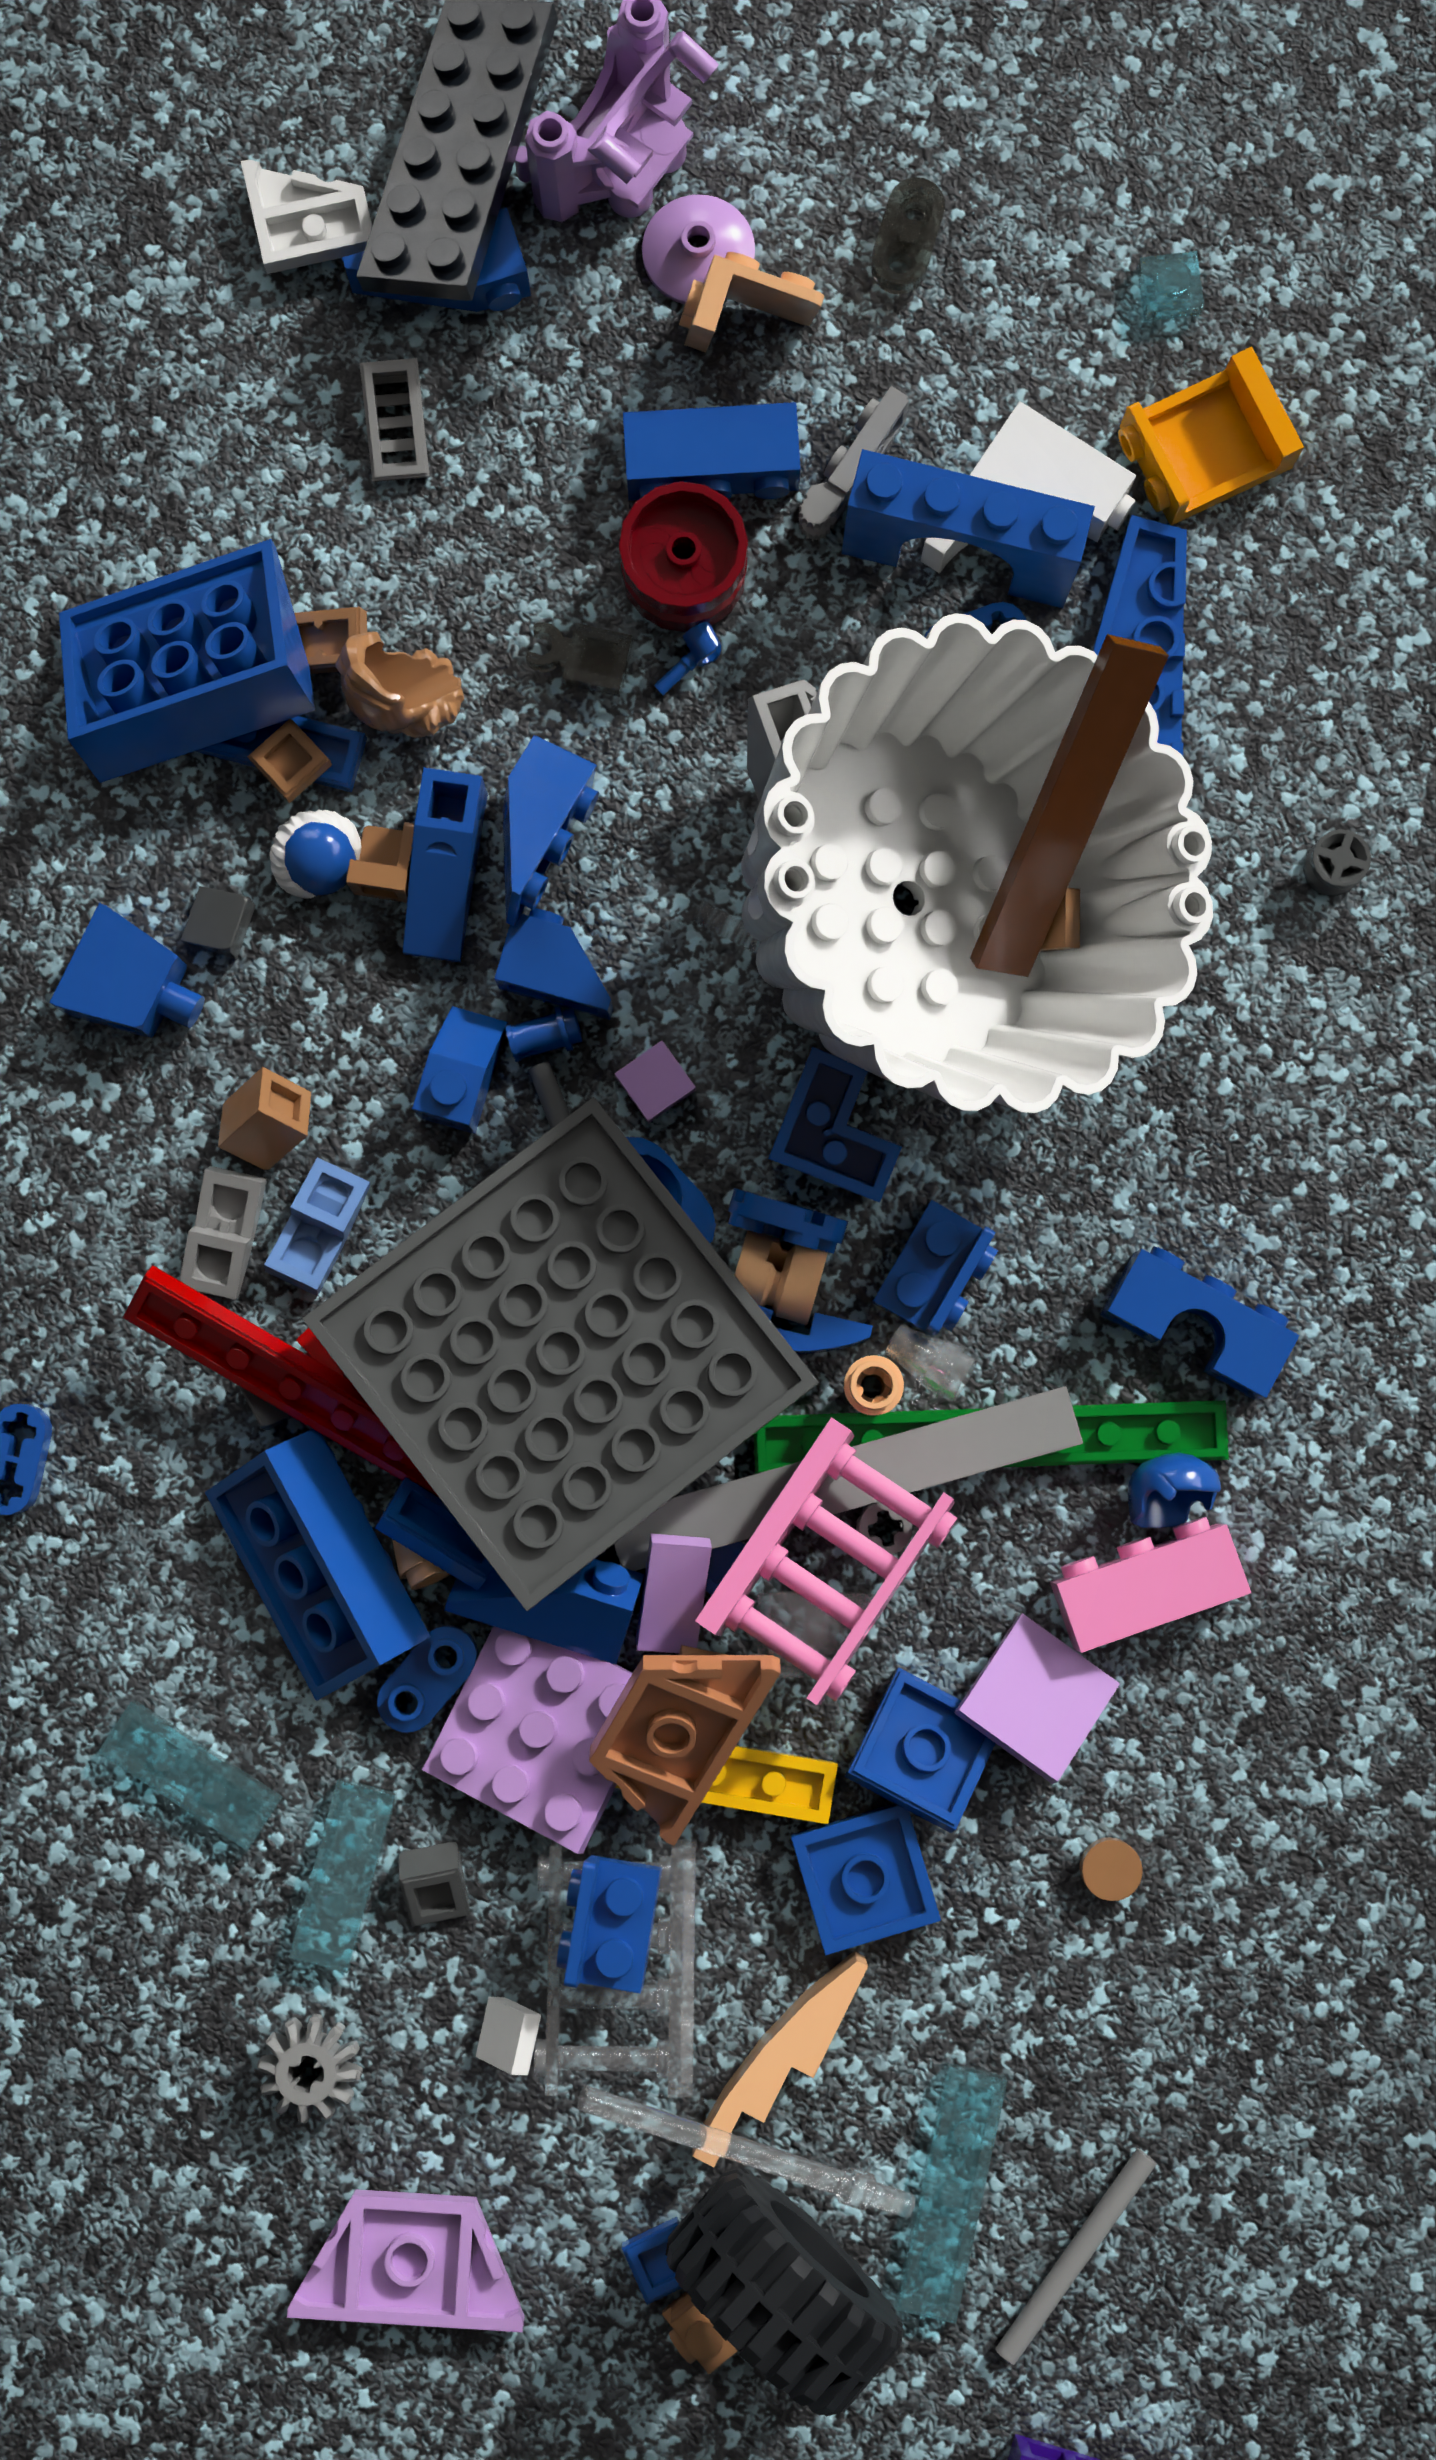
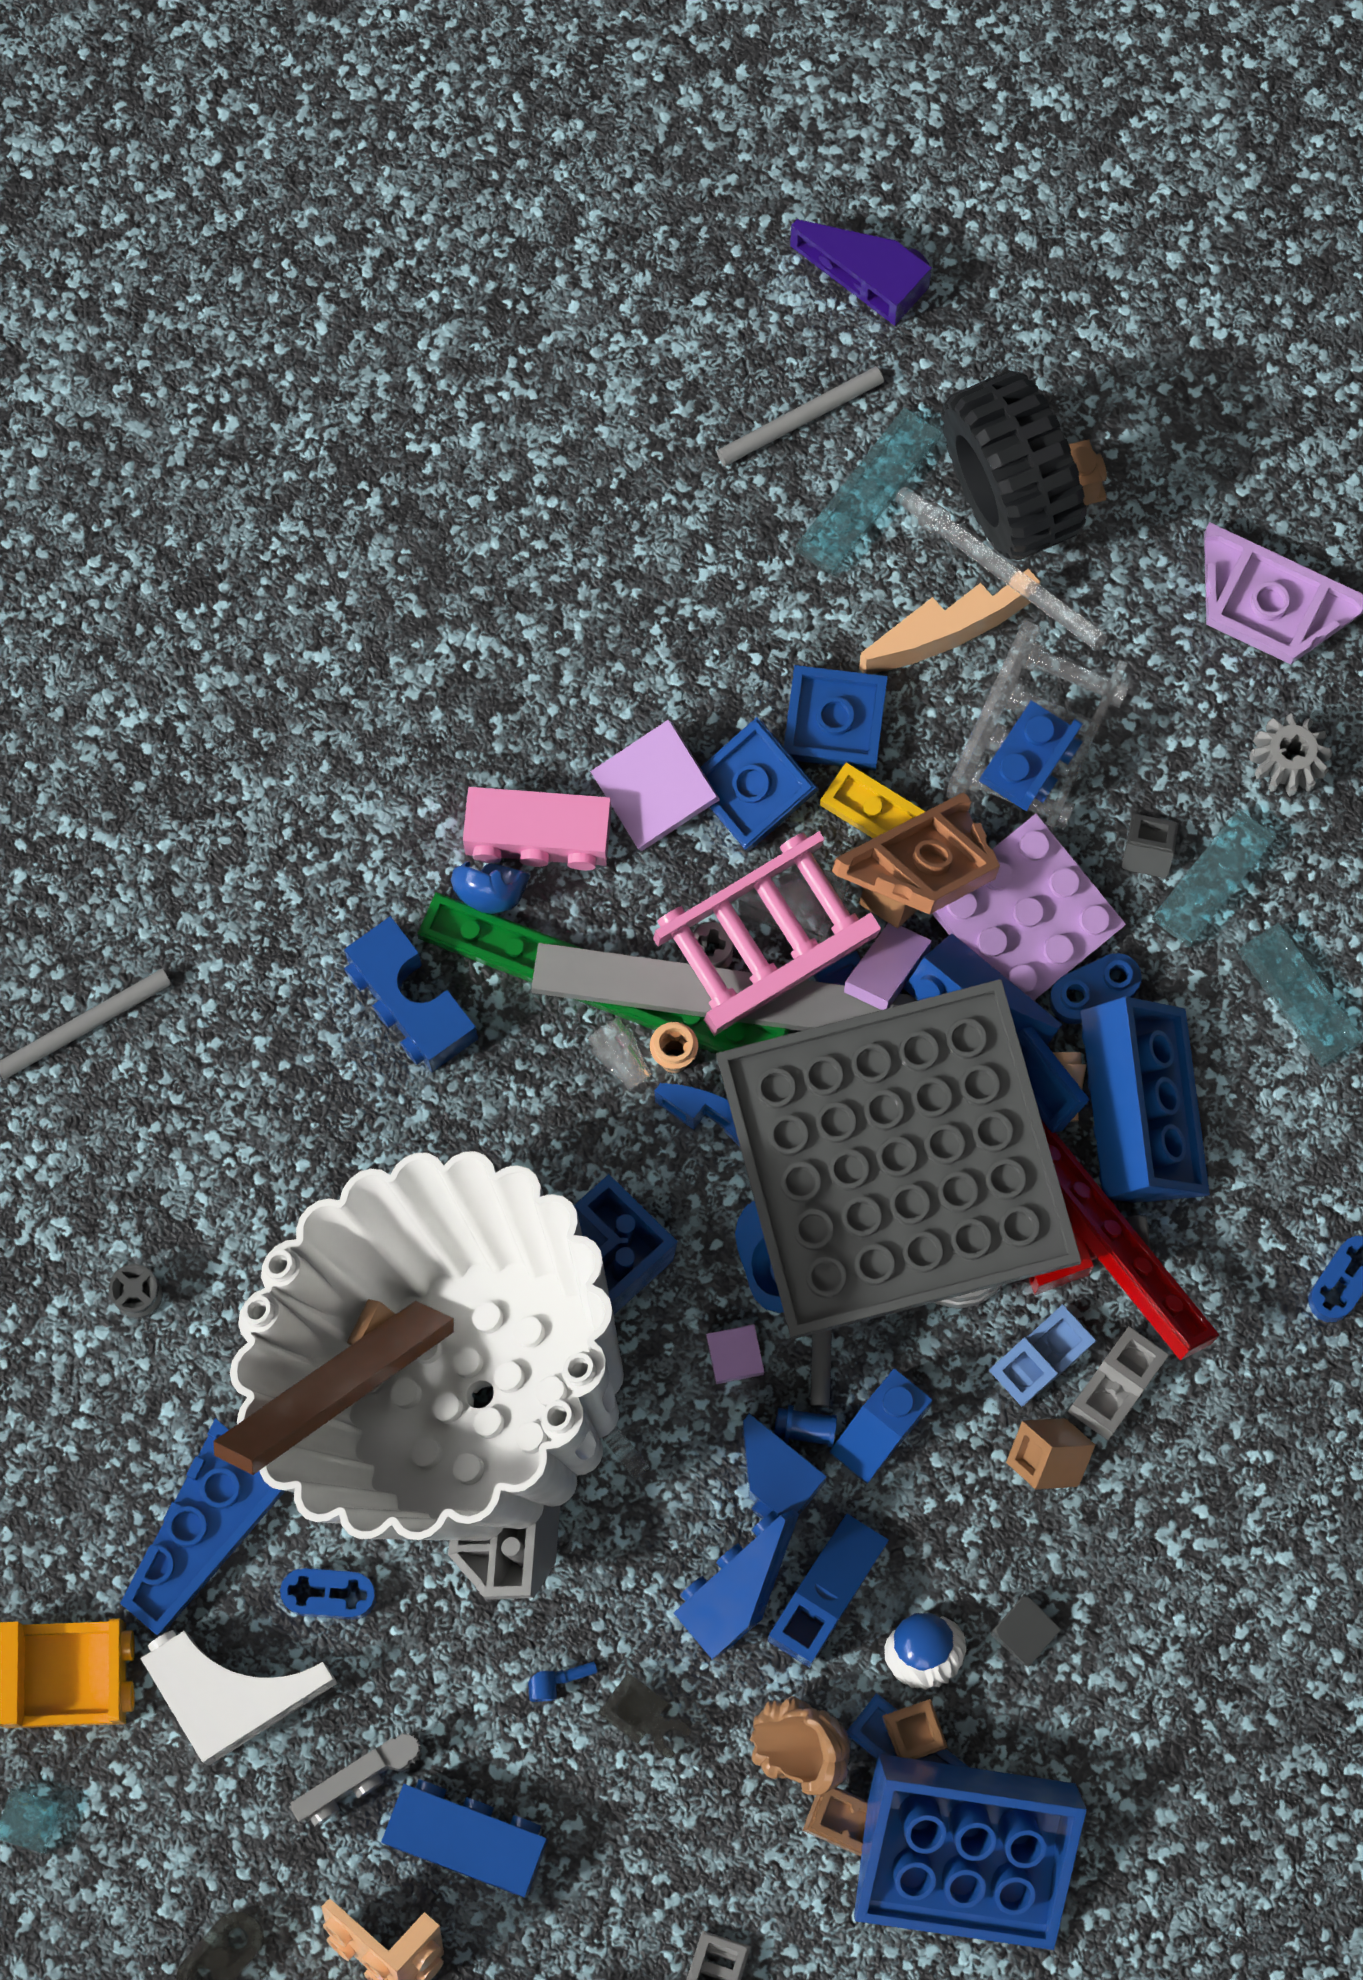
camera: 155 degrees left, 10 degrees down
(125, 979) = (1115, 1610): blue torso -> none
(383, 863) = (871, 1618): medium nougat panel -> none
(508, 2035) = (1138, 717): white tile -> none
(648, 2261) = (1097, 534): blue tile -> none
(678, 523) = (535, 1785): dark red wheel -> none
(780, 1276) = (707, 1160): light nougat wheel -> none
(801, 1224) = (682, 1197): blue plate -> none
(912, 500) = (297, 1668): blue arch -> none
(934, 1270) = (585, 1118): blue bracket -> none
(1111, 1869) = (656, 652): medium nougat tile -> none

